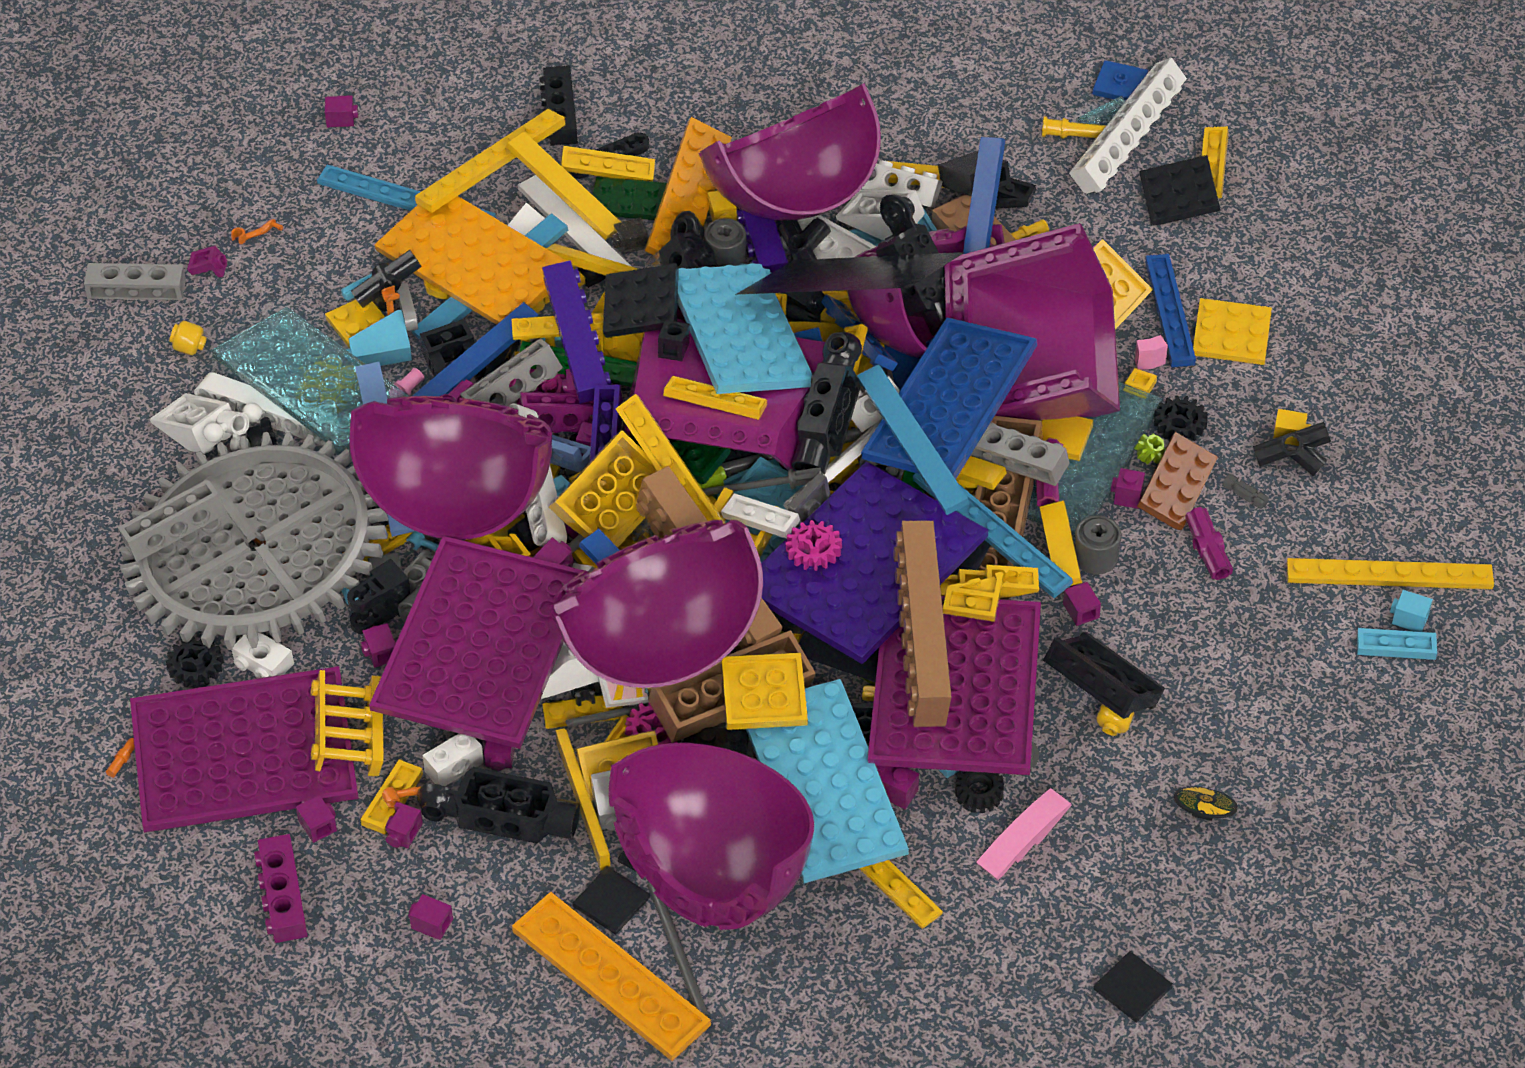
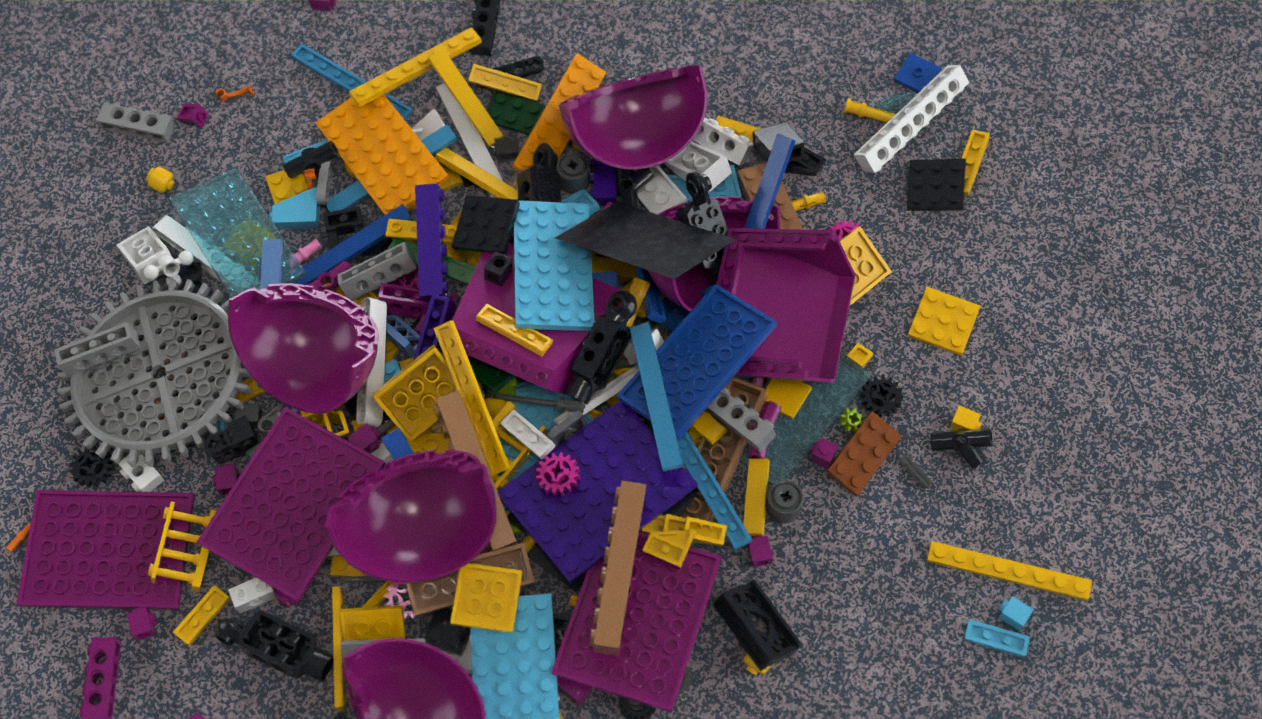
camera: 15 degrees right, 15 degrees up
(392, 796) = (197, 619): orange piece -> none
(403, 825) = (202, 644): magenta brick -> none
(1150, 353) = (873, 332): bright pink piece -> none
(1170, 310) = (900, 293): blue plate -> none
(1208, 543) = (873, 516): magenta piece -> none

